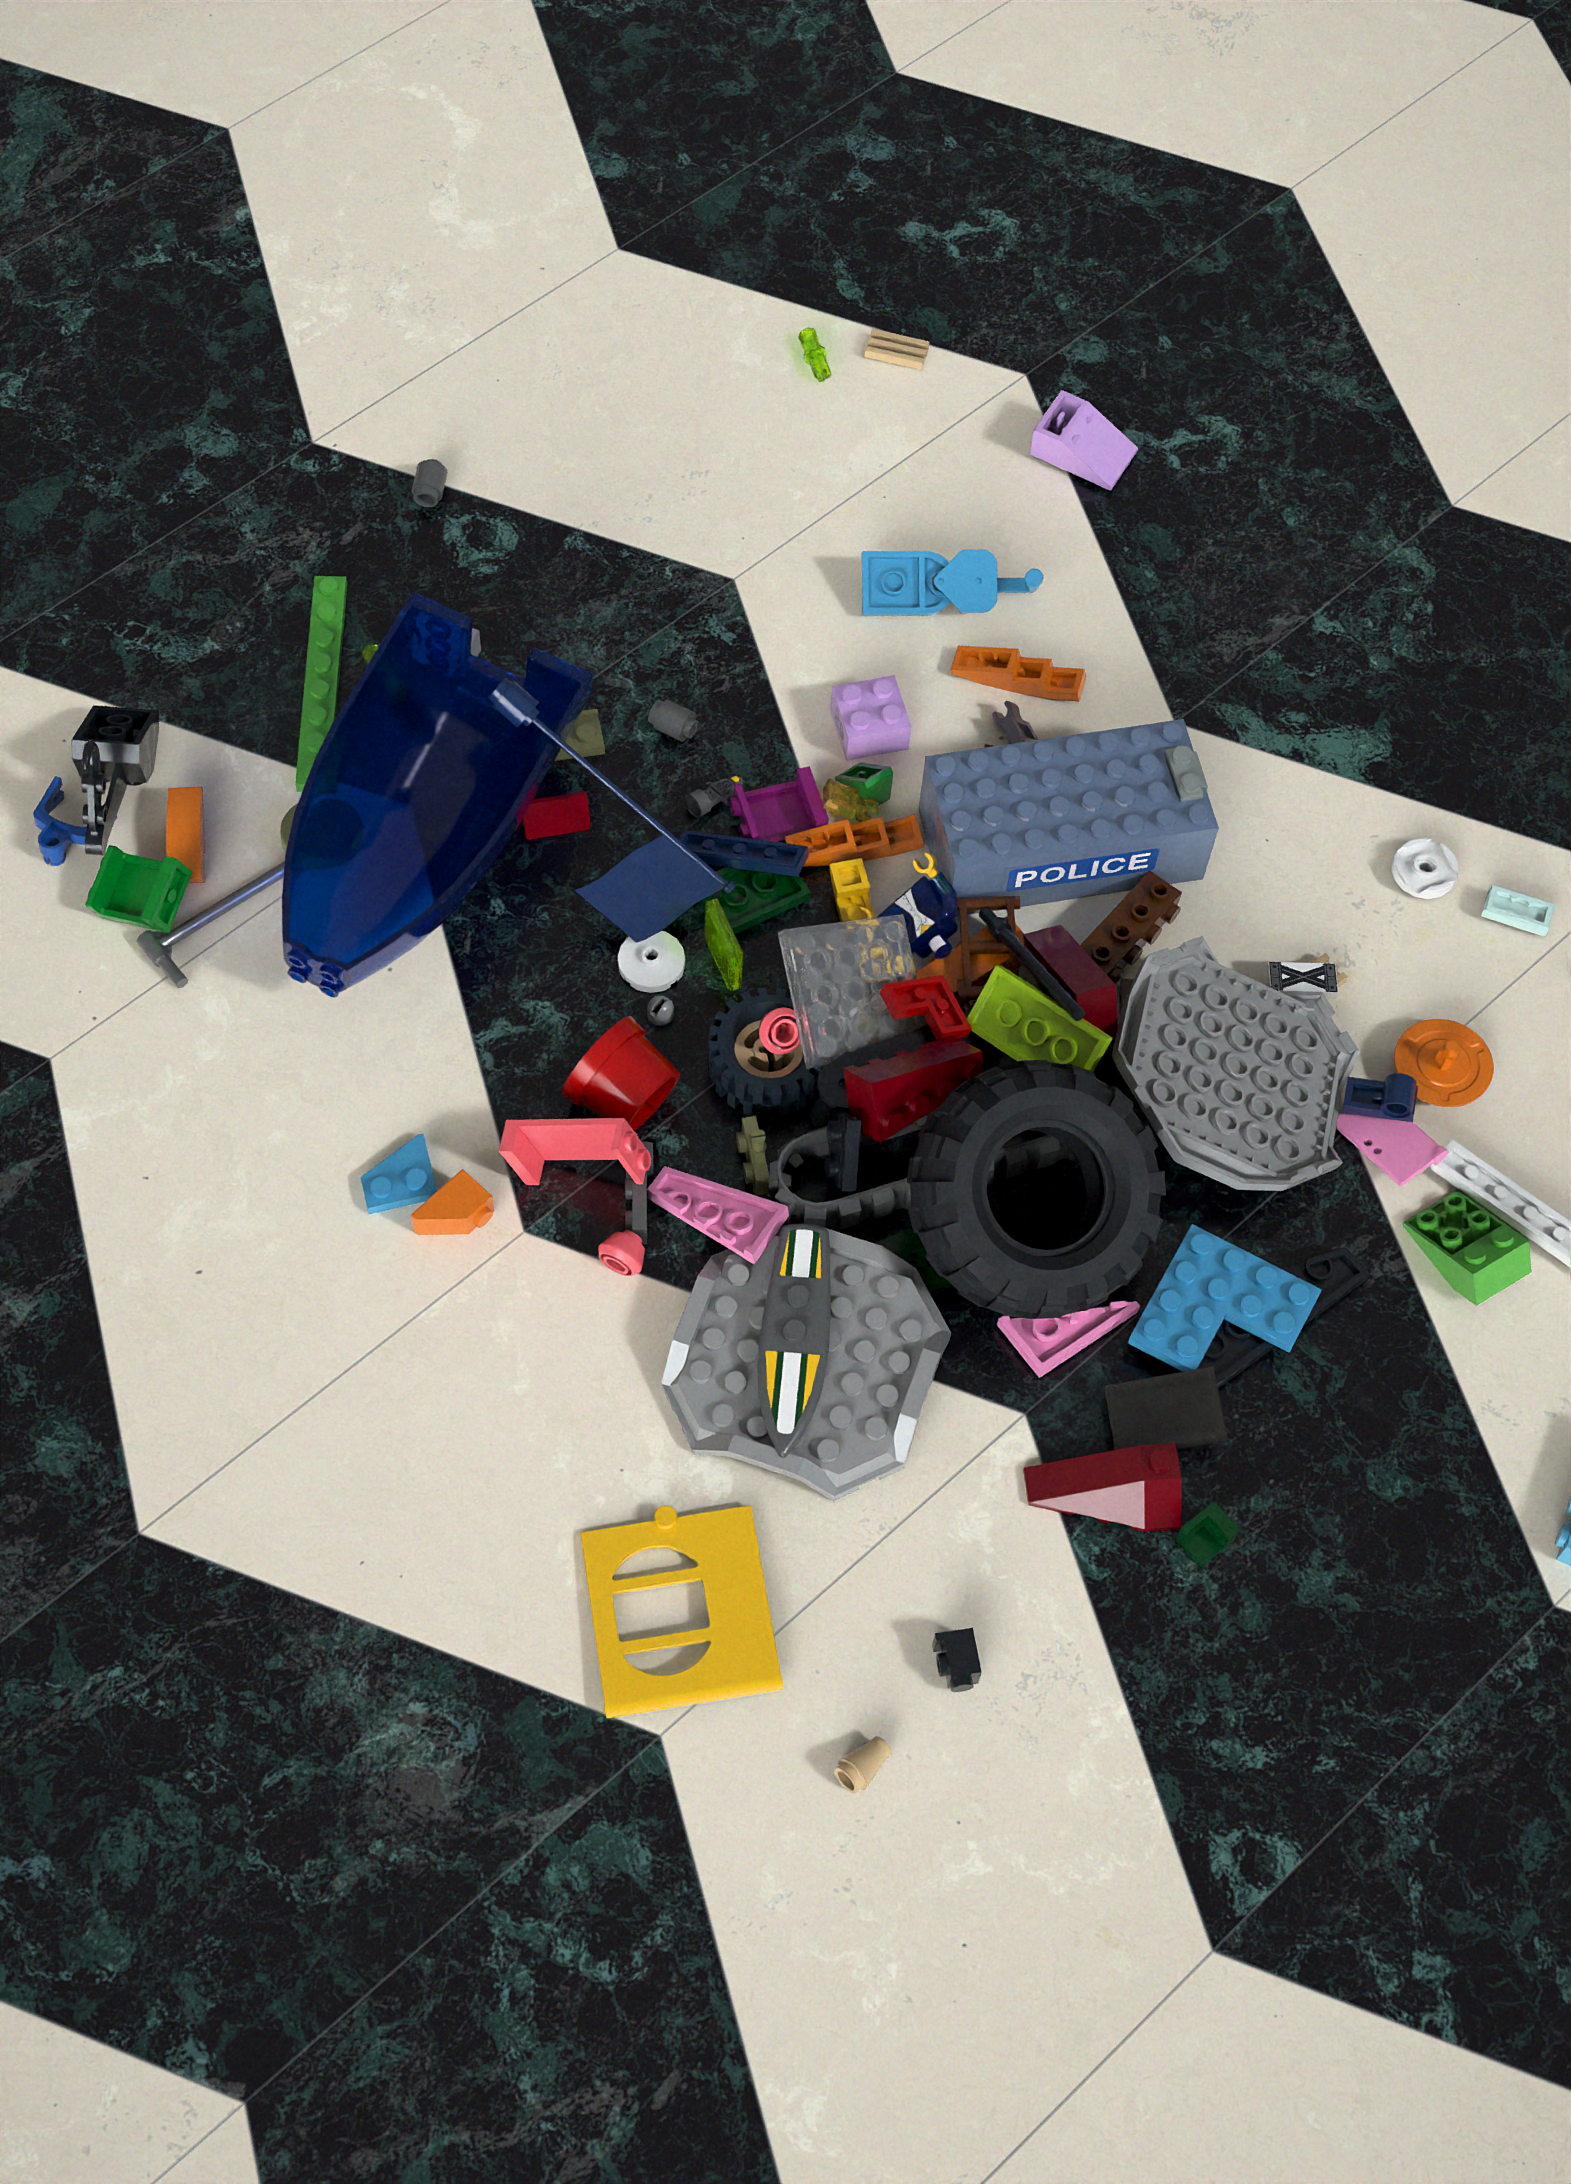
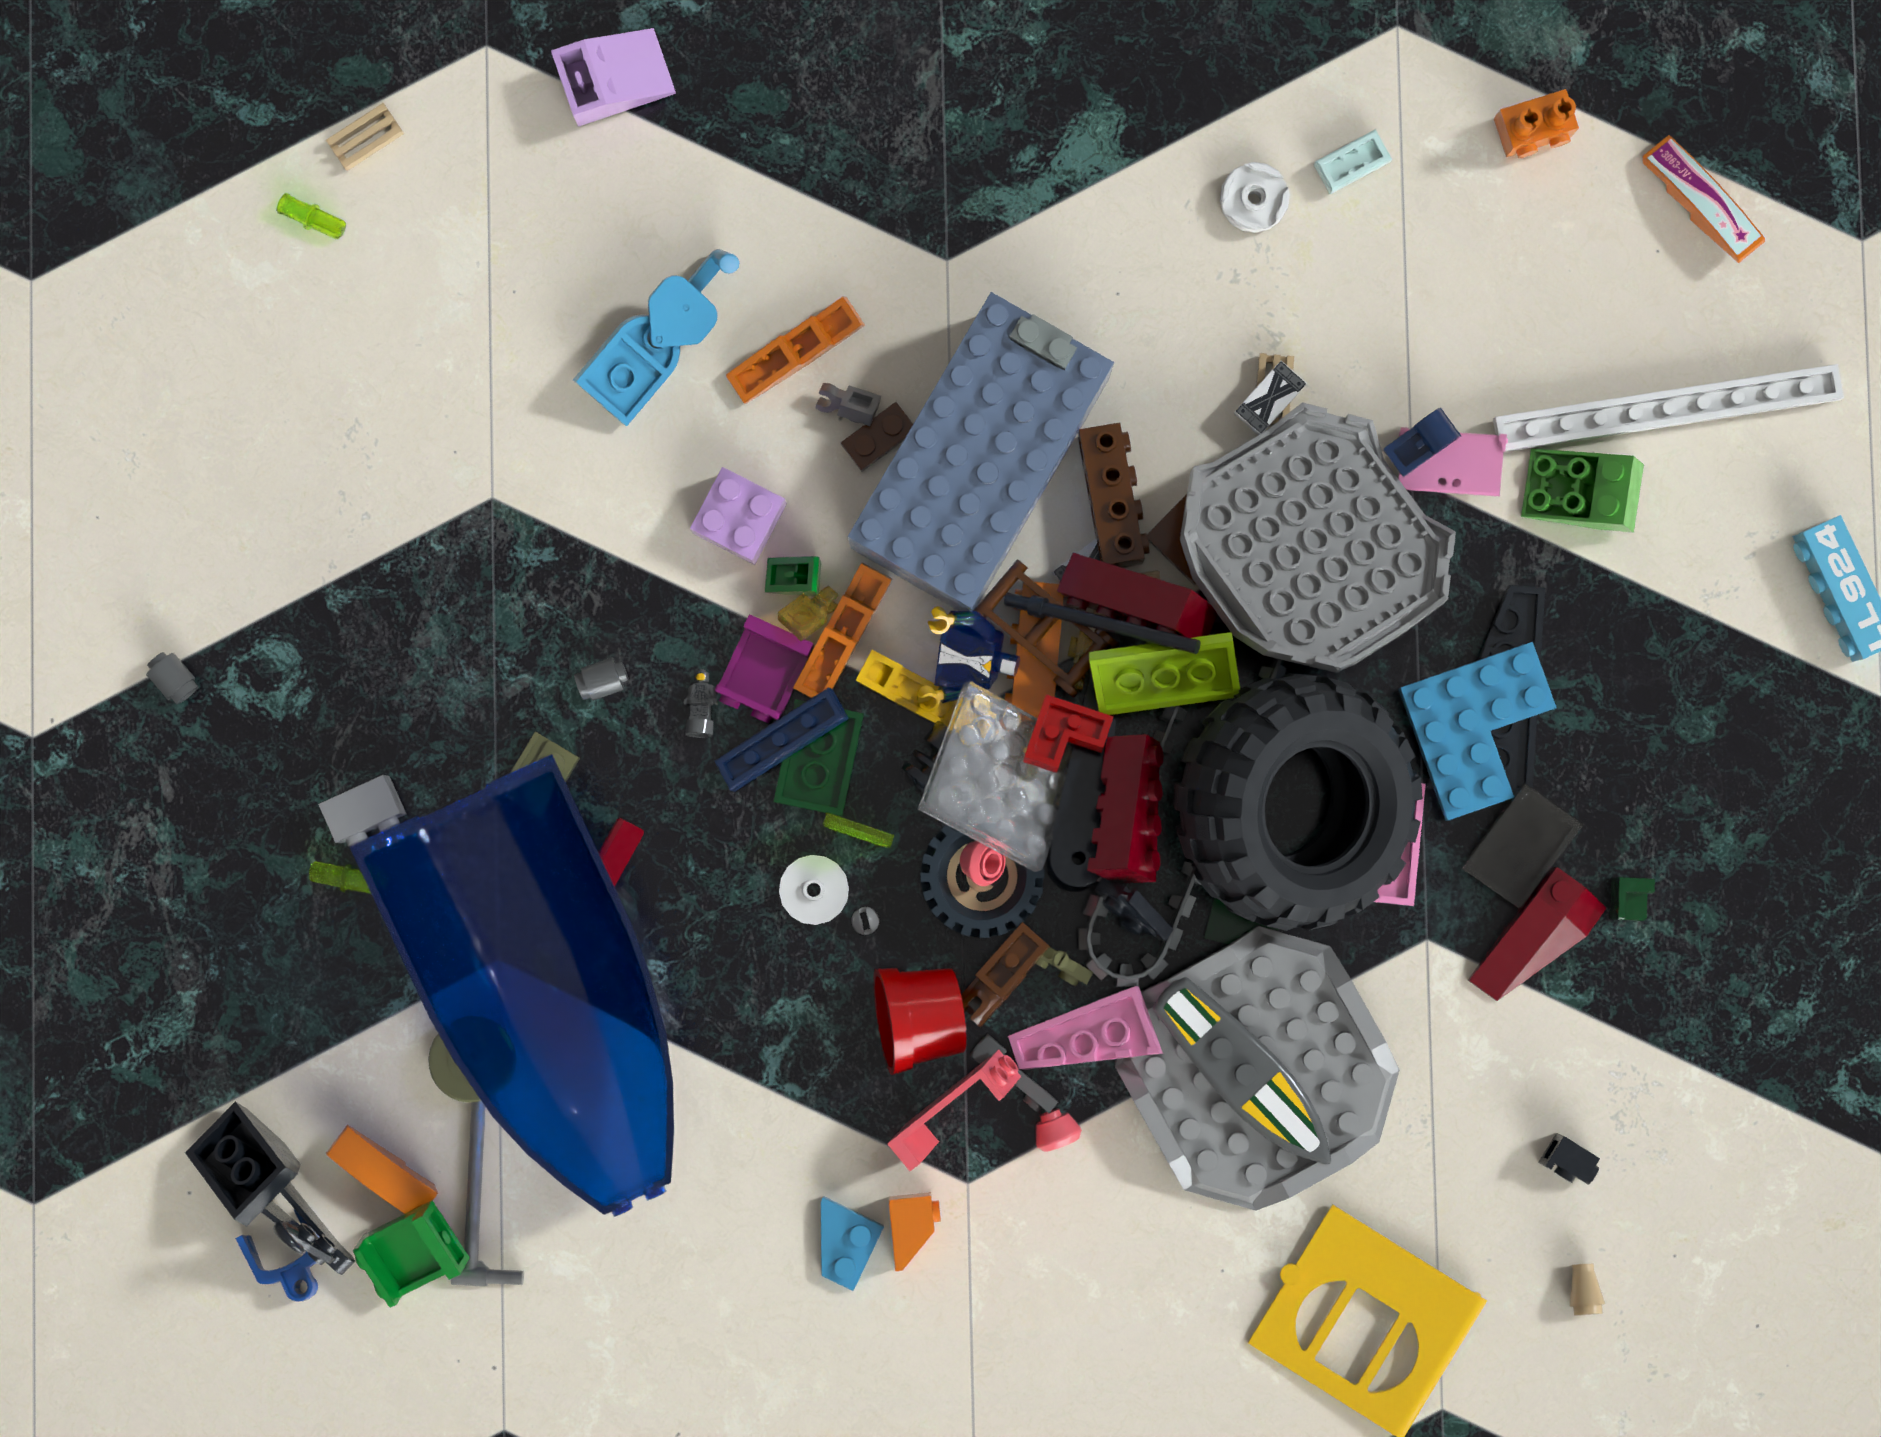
camera: 45 degrees left, 25 degrees up
(322, 670) = (310, 935): bright green plate -> none
(651, 882) = (757, 843): dark blue flag -> none
(706, 1115) = (1002, 974): none -> reddish brown plate
(1446, 1061) = (1431, 359): orange piece -> none

